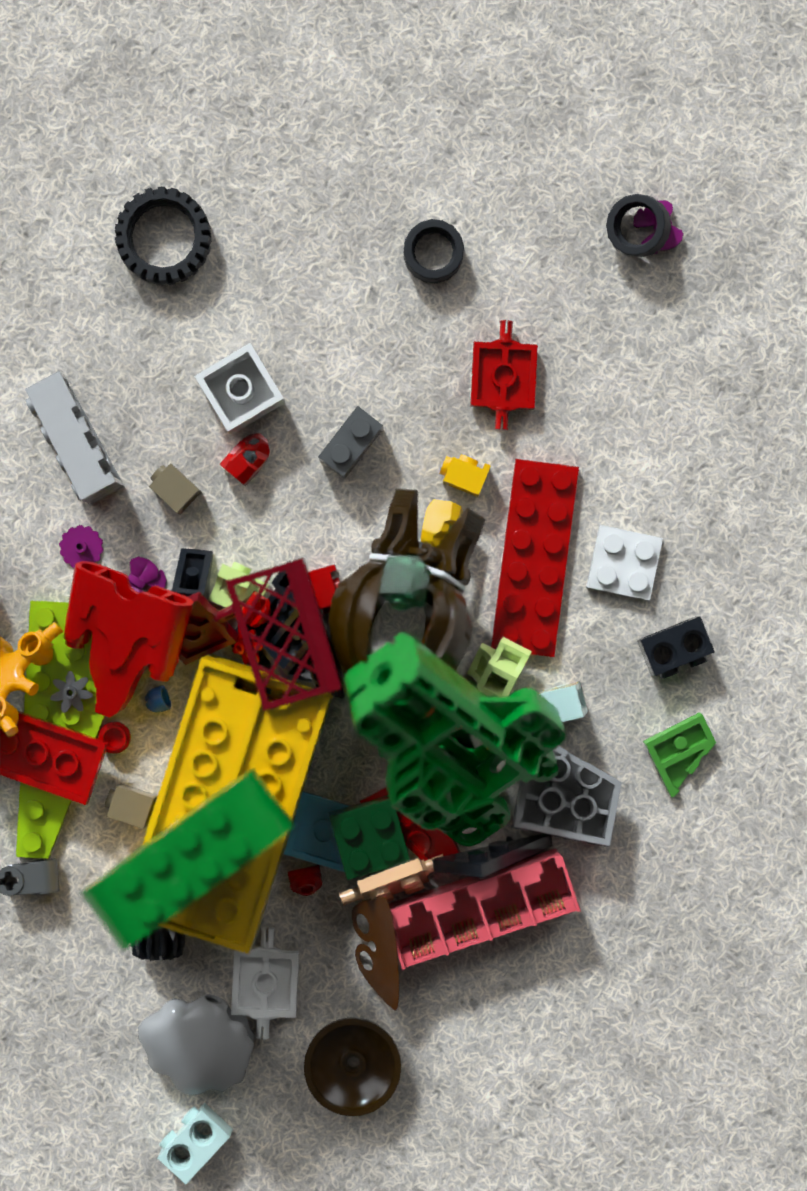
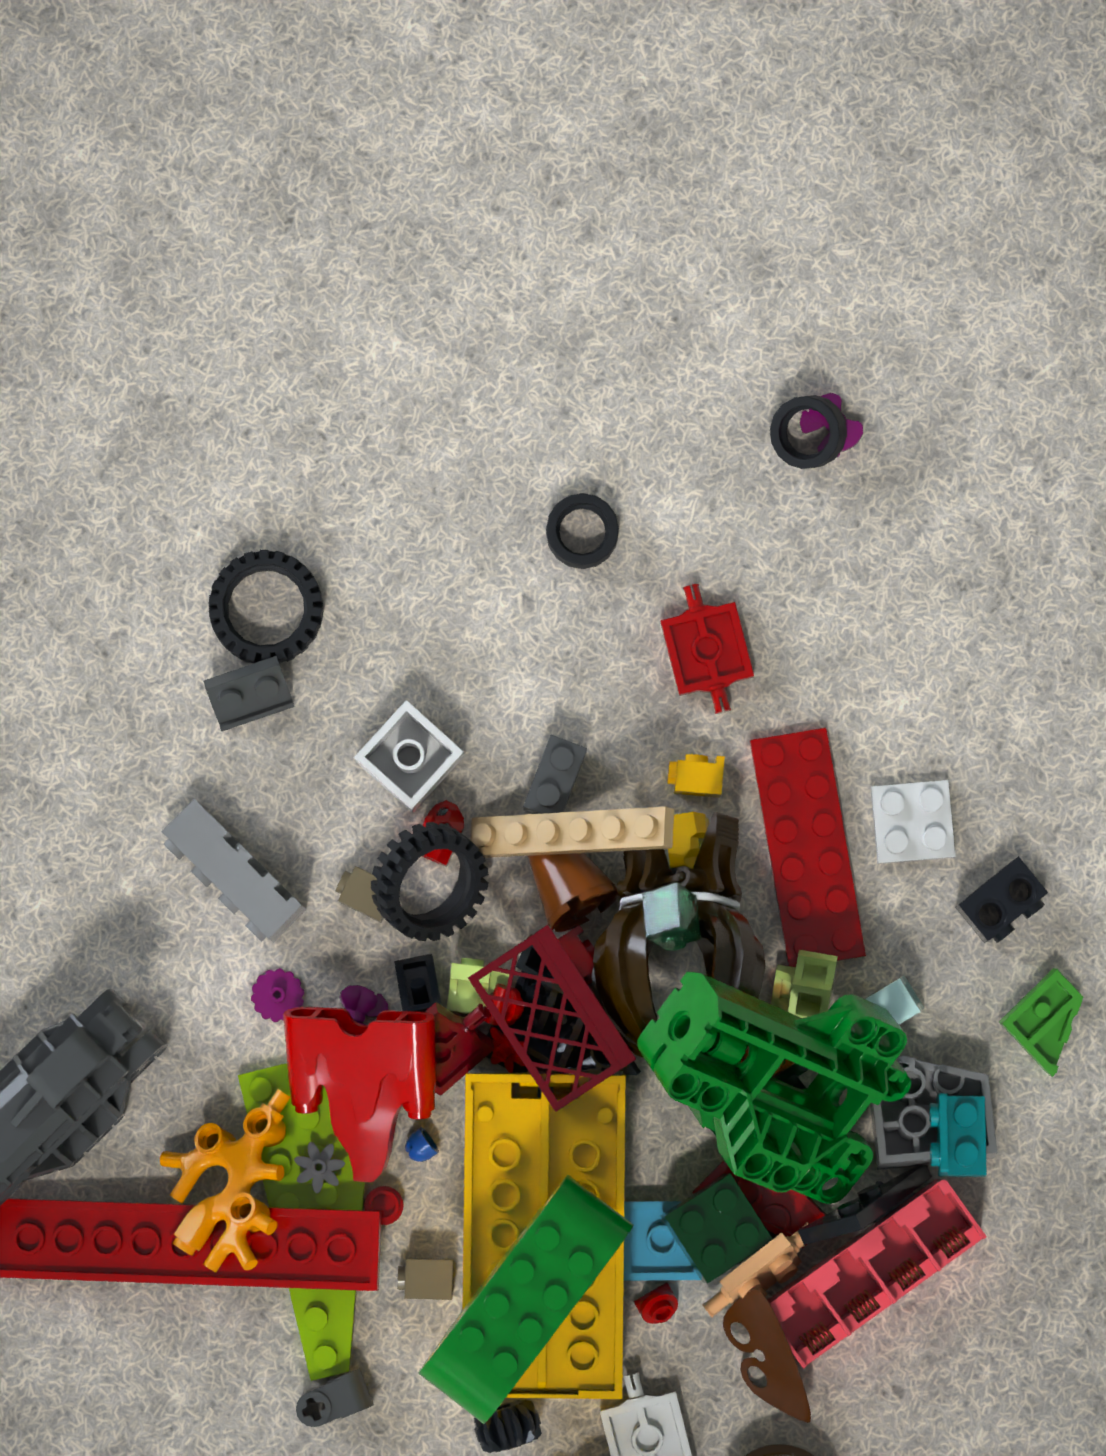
camera: 15 degrees left, 5 degrees down
(128, 300) = (249, 693): none -> dark grey plate
(240, 520) = (403, 856): none -> black tyre
(335, 523) = (571, 888): none -> dark orange cone
(350, 489) = (574, 832): none -> tan plate
(584, 824) = (960, 1136): none -> teal bracket

